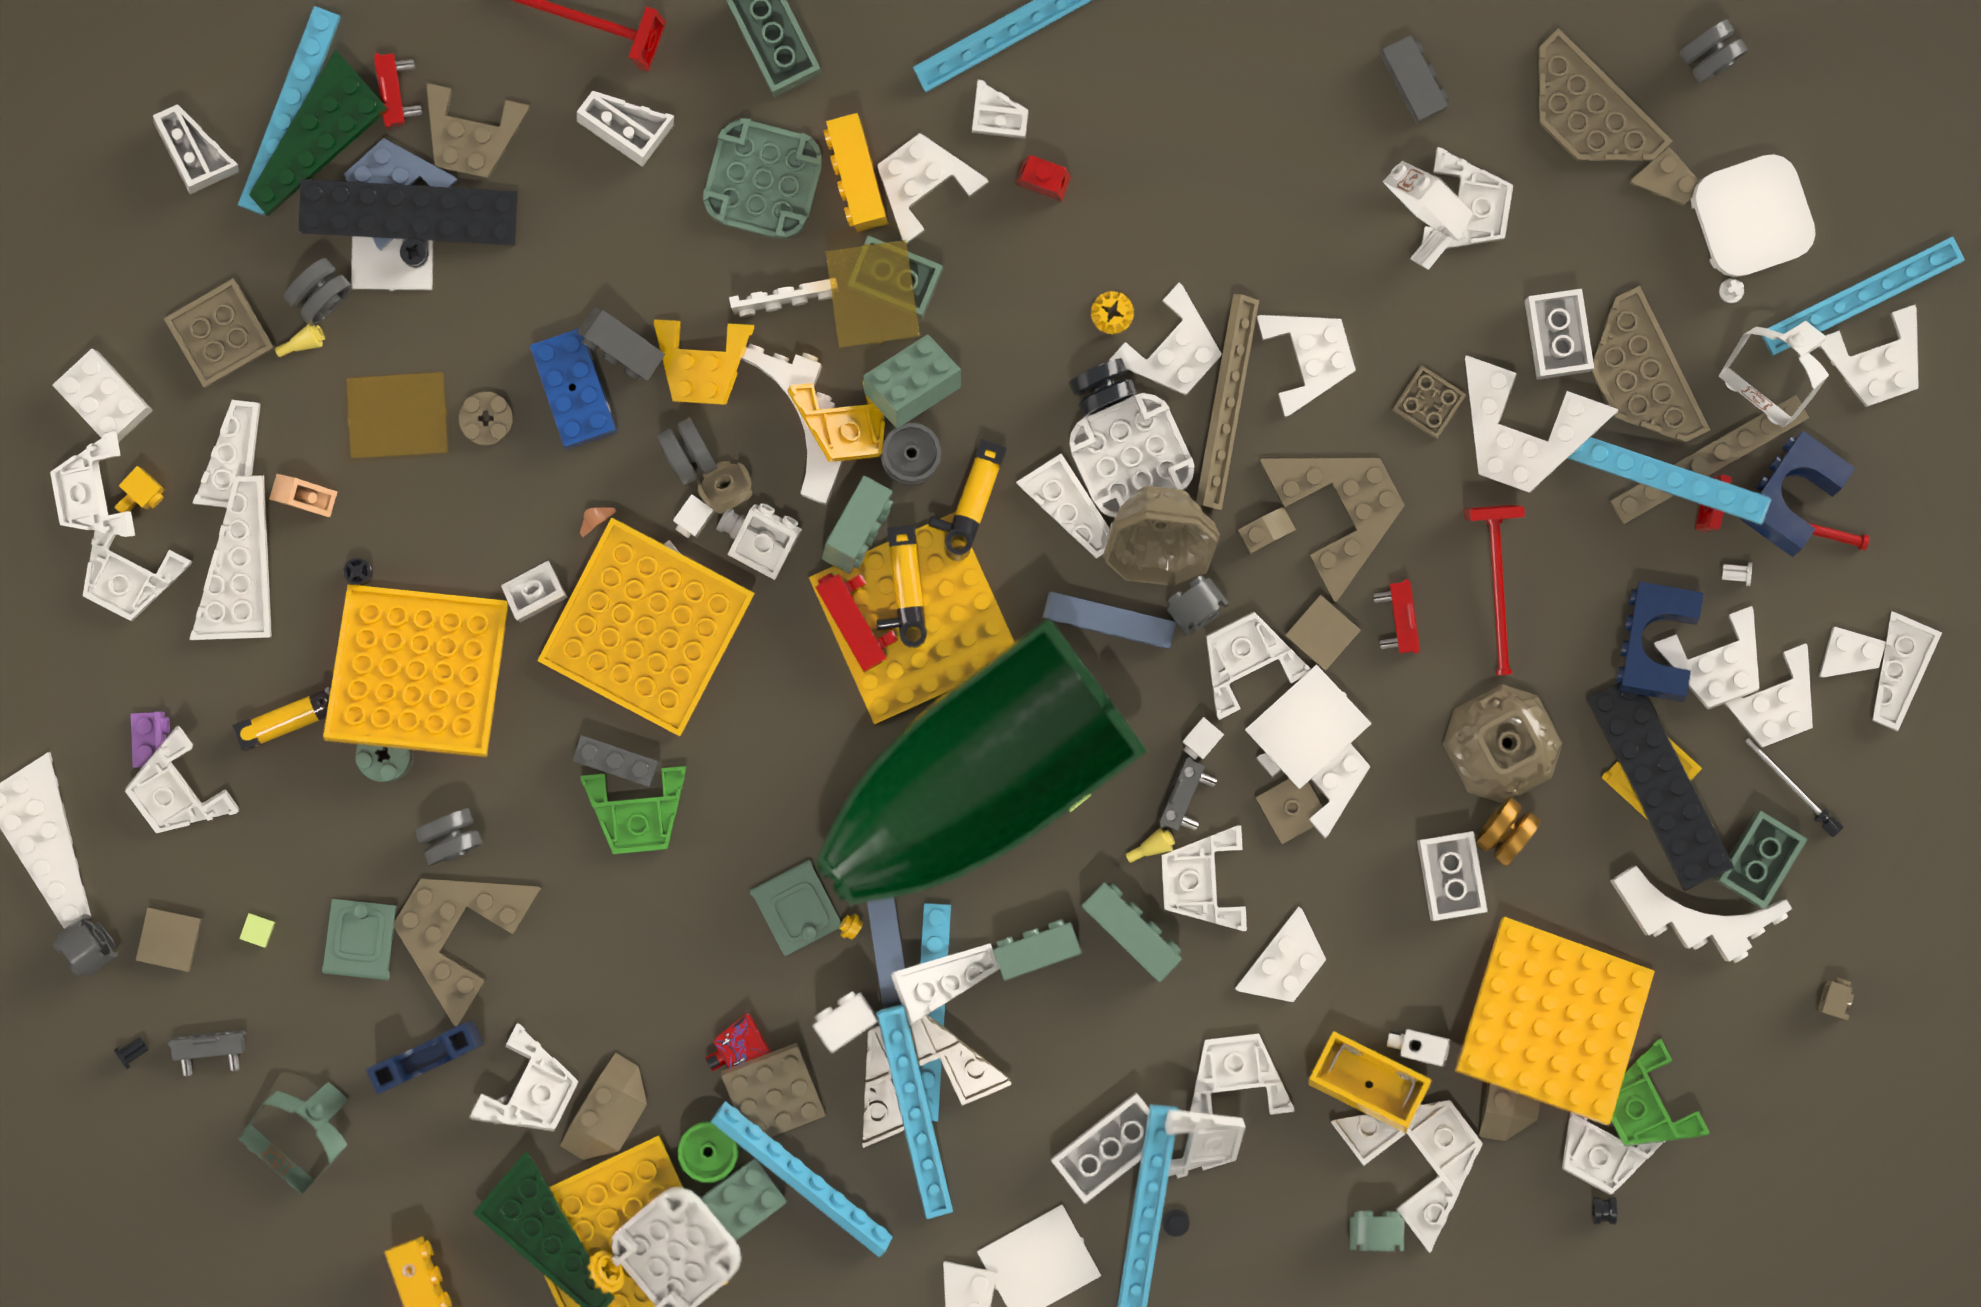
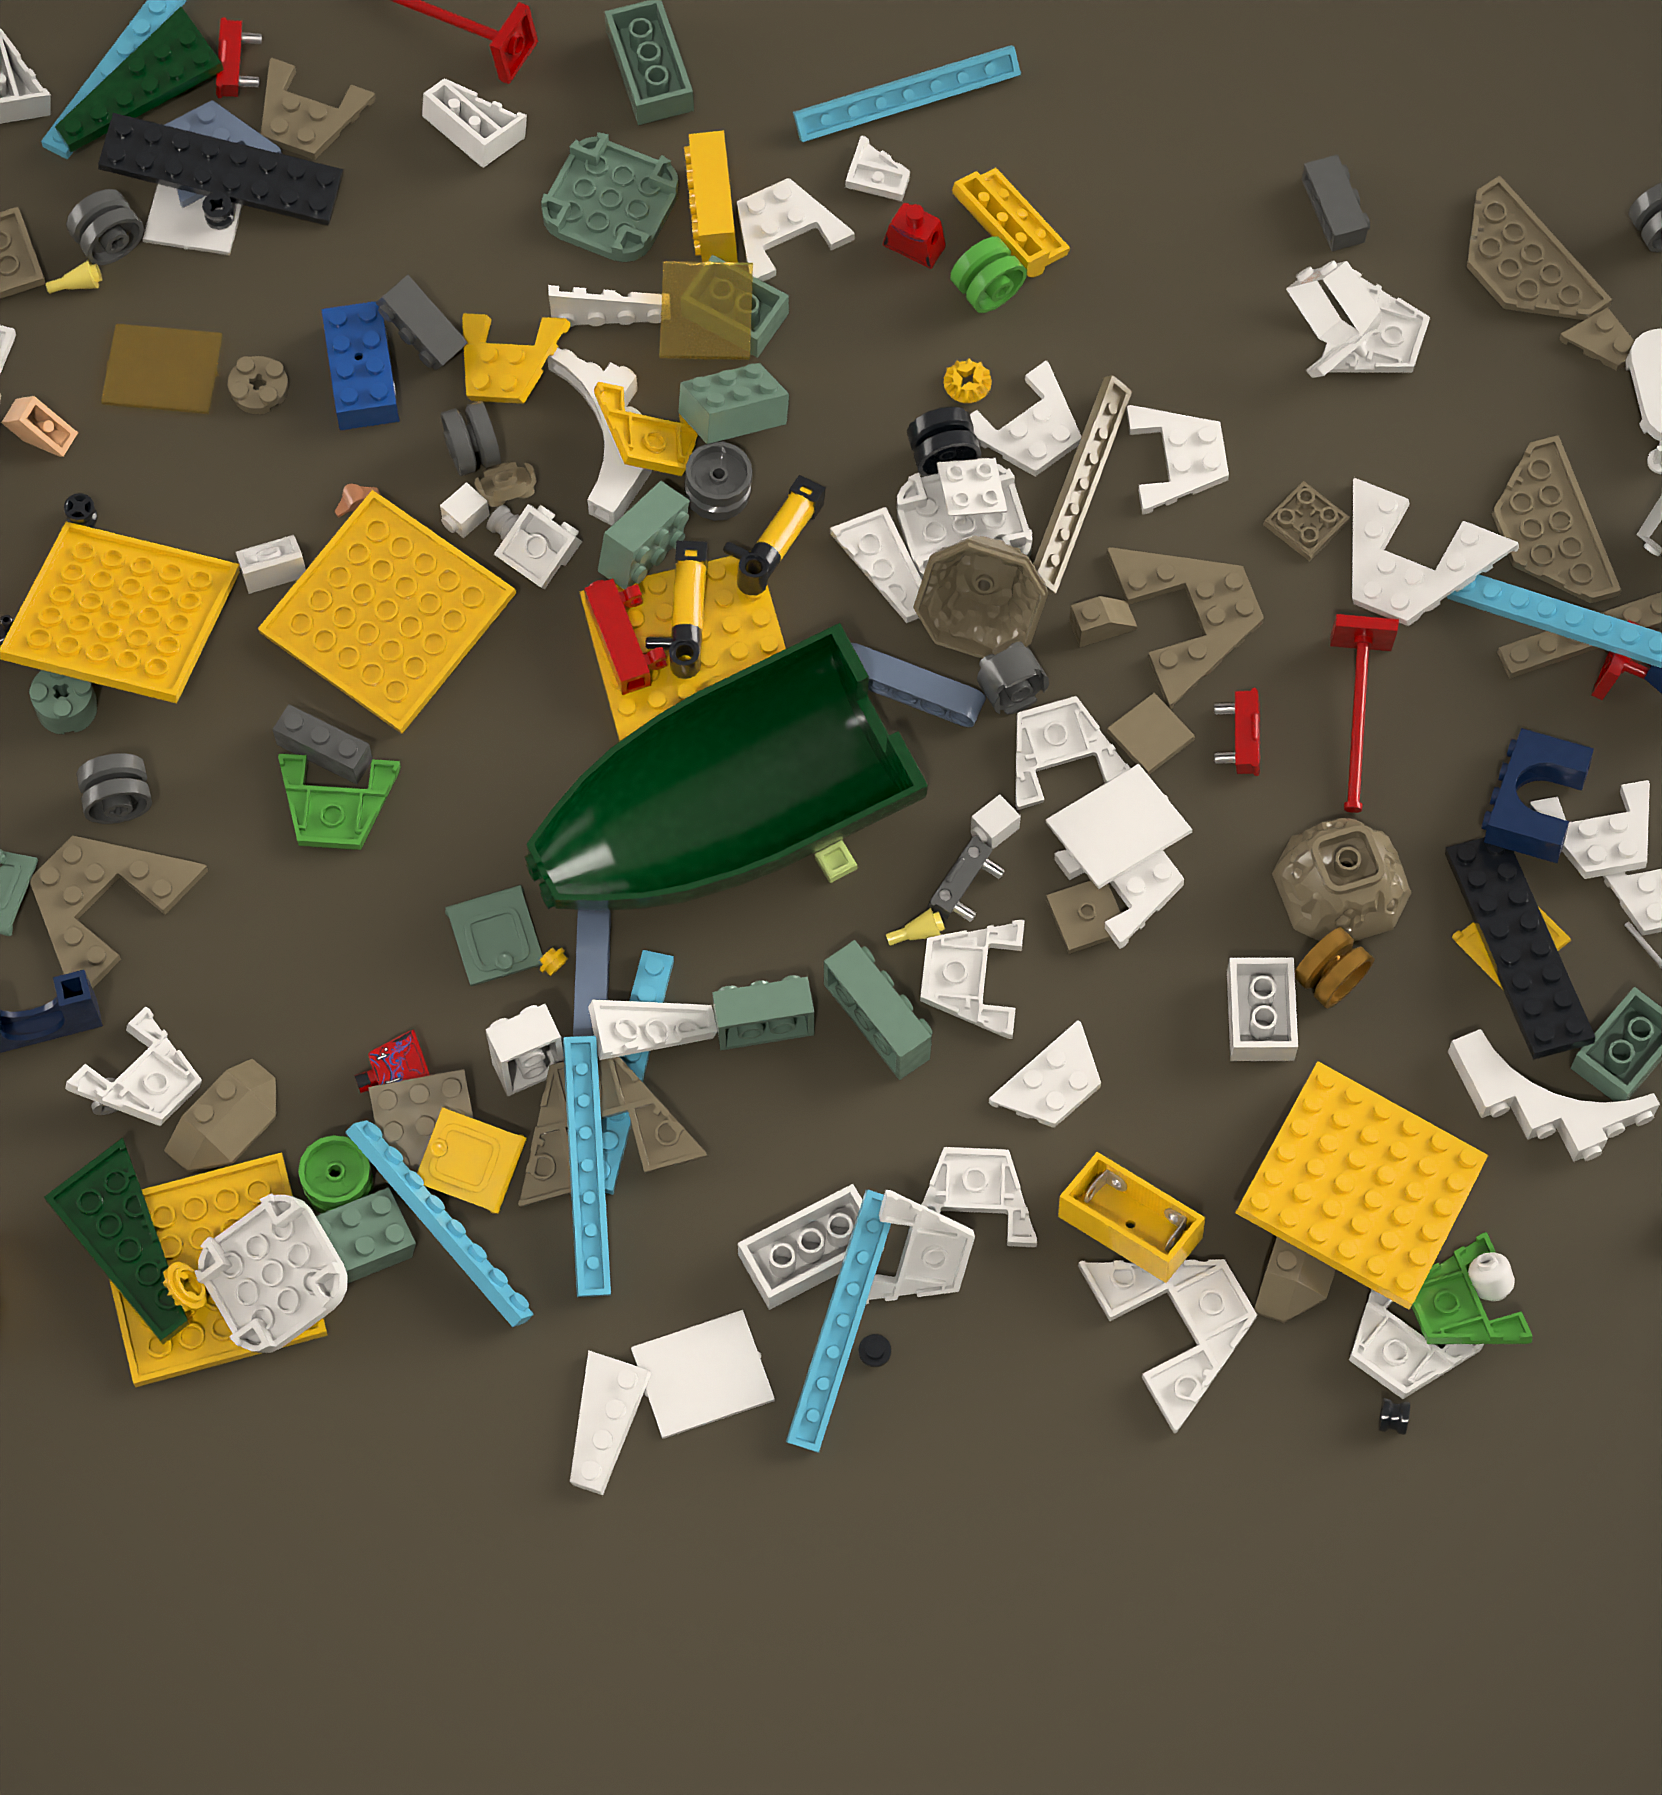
camera: 10 degrees right, 20 degrees down
(821, 1118) = (476, 1162): none -> yellow container
(1112, 208) = (988, 274): none -> bright green wheel
(1126, 147) = (1011, 218): none -> yellow brick
(1134, 427) = (971, 488): none -> white hinge
(1376, 1232) = (1114, 1392): sand green brick -> none
(1433, 1049) = (1202, 1190): white torso -> none
(1559, 334) = (1462, 467): white brick -> none
(1669, 1080) = (1491, 1276): none -> white head
(1737, 572) = (1636, 743): white piece -> none

